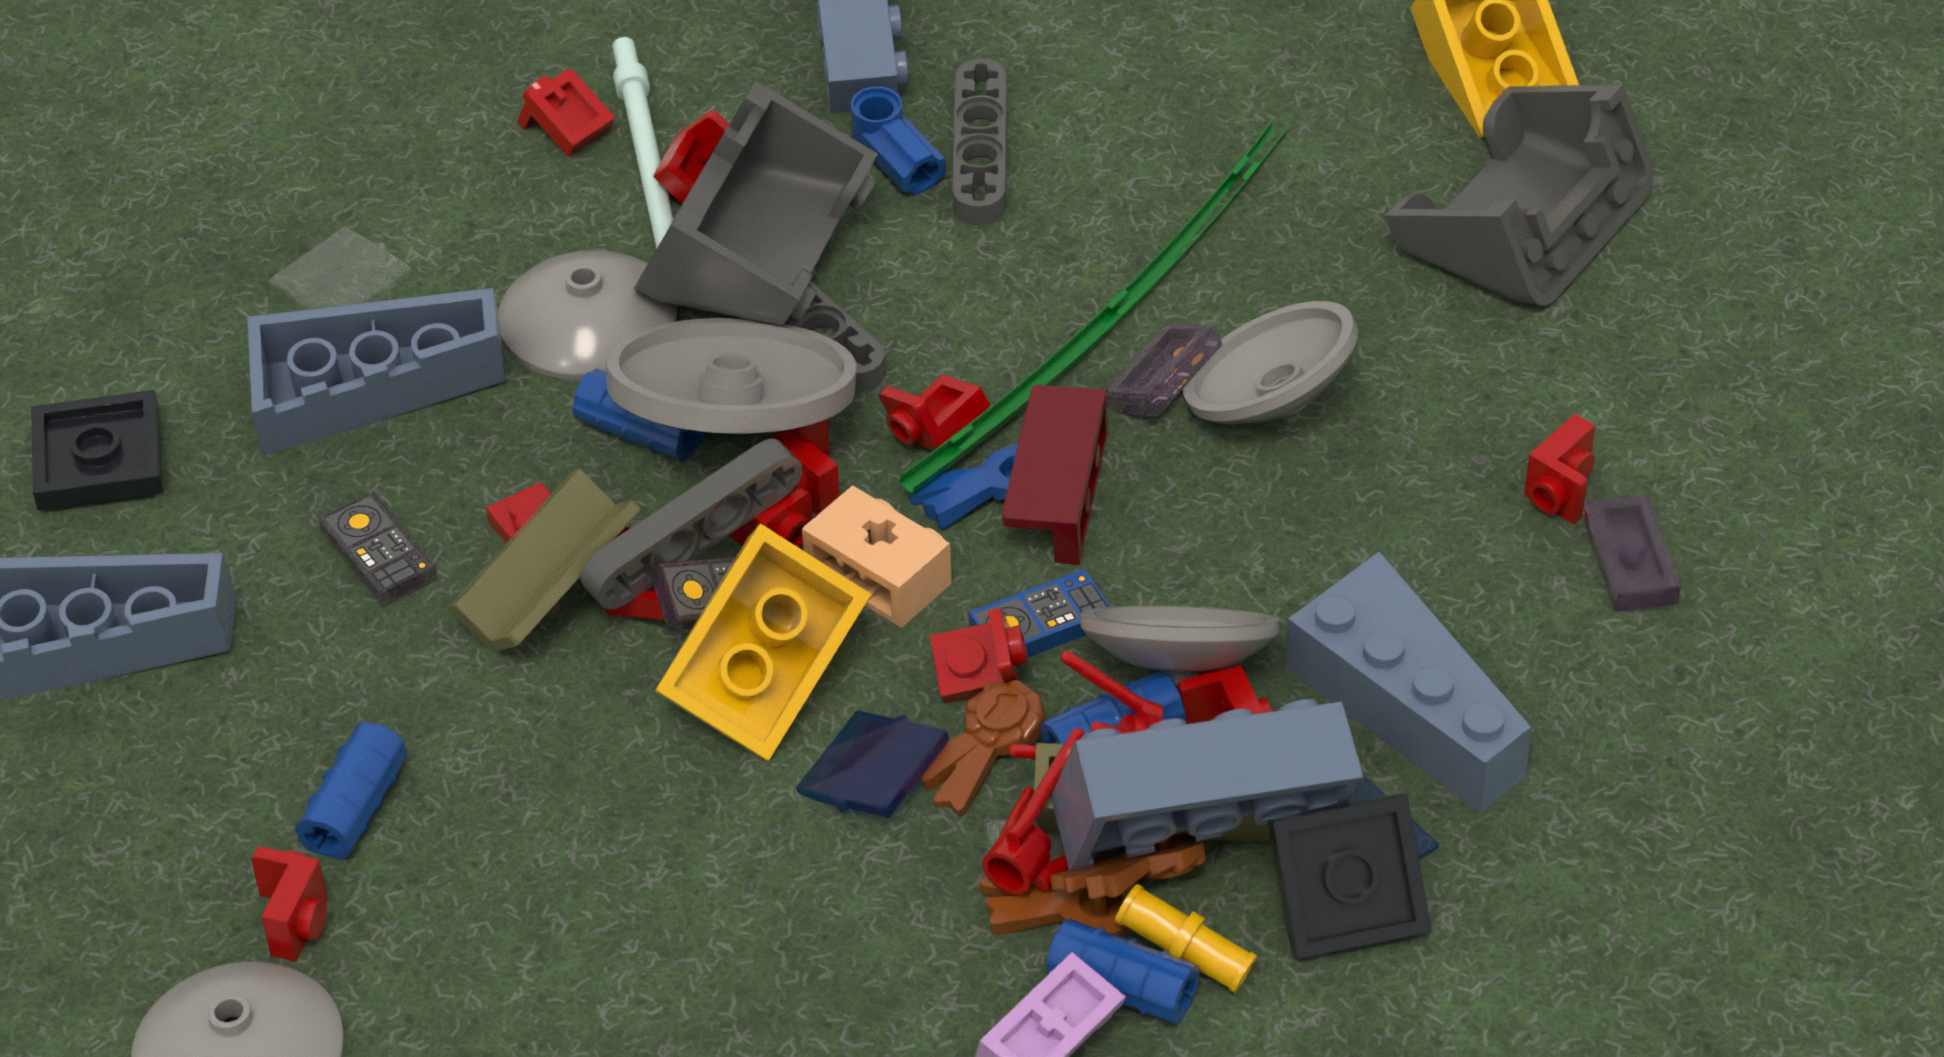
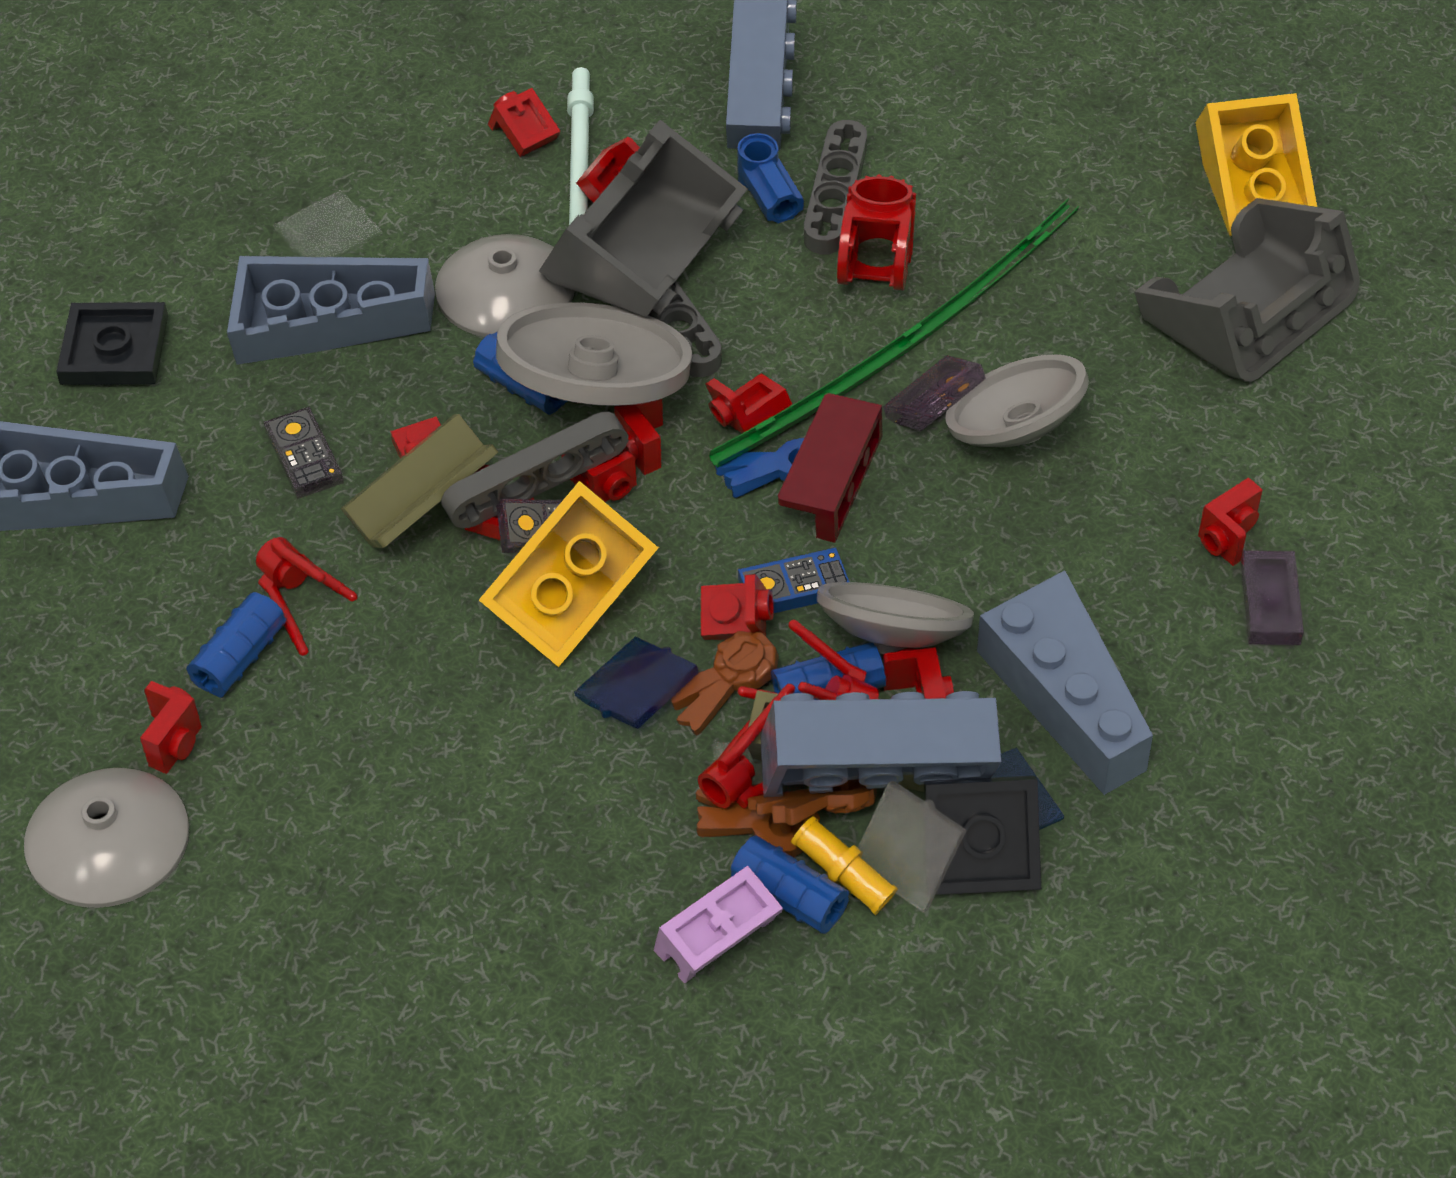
camera: 10 degrees right, 5 degrees up
(395, 690) = (289, 568): none -> red plant
(881, 553) = (677, 513): light nougat brick -> none
(1049, 160) = (877, 210): none -> red piece
(1265, 899) = (910, 844): none -> clear piece

